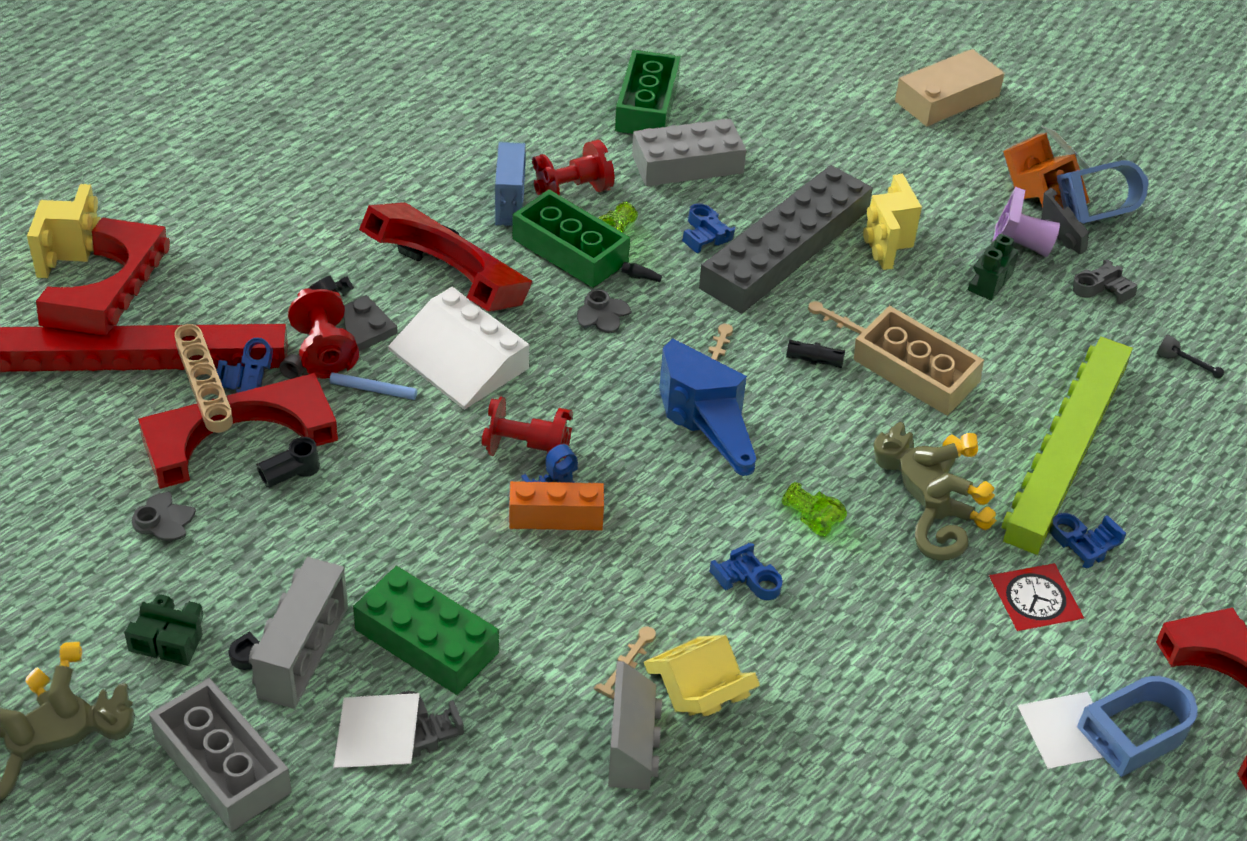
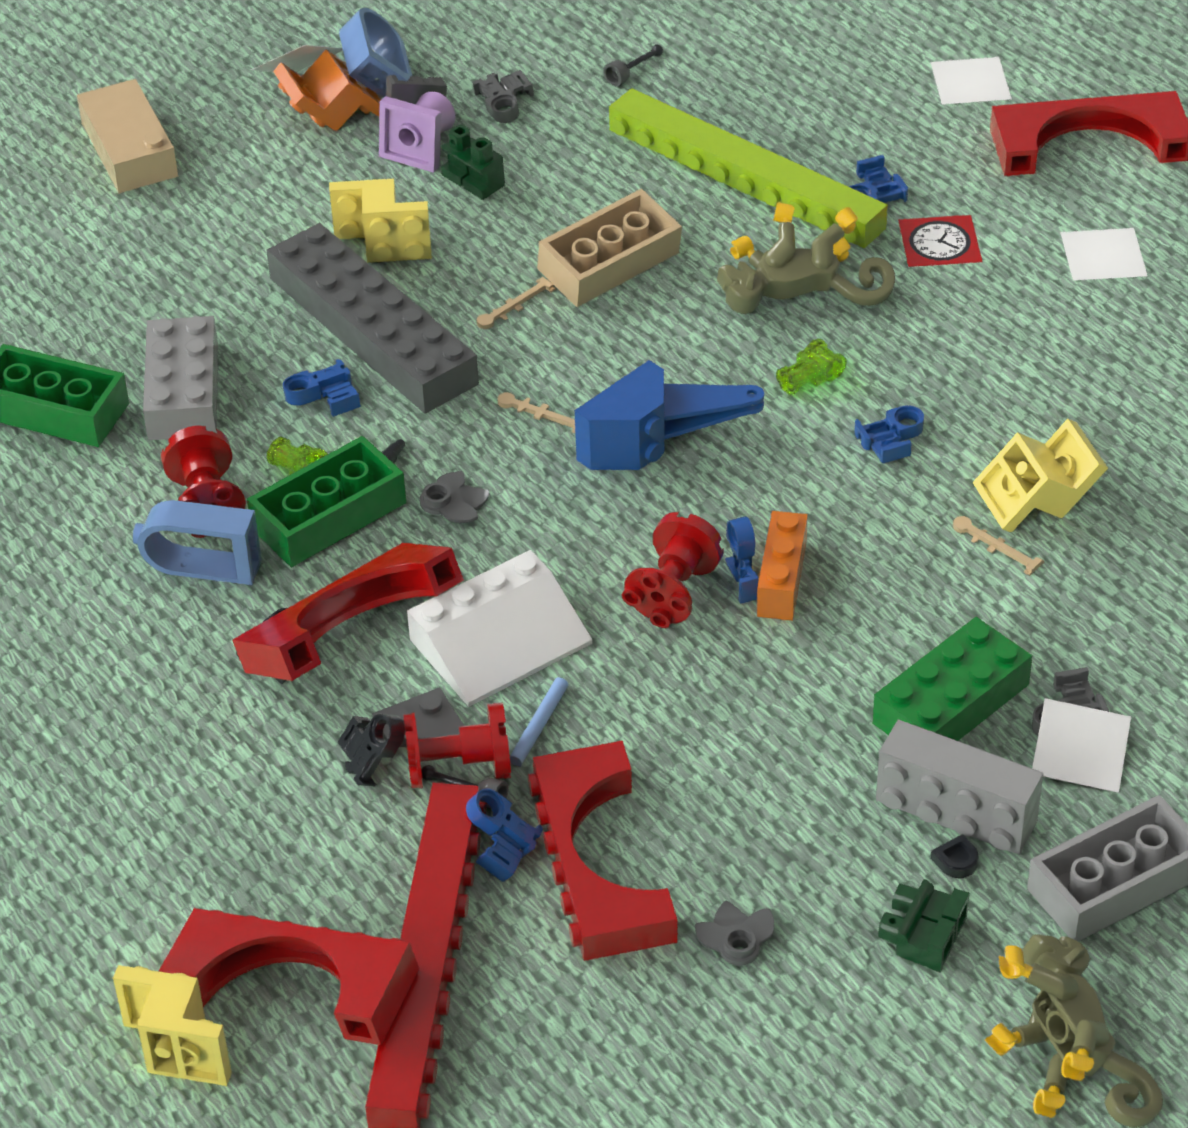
camera: 75 degrees left, 0 degrees up
(203, 387) = (511, 873): tan beam -> none
(299, 460) = (671, 800): black piece -> none
(634, 730) = (1103, 542): light grey slope -> none
(815, 353) = (568, 330): black pin -> none
(1115, 745) = (1121, 224): medium blue window -> none

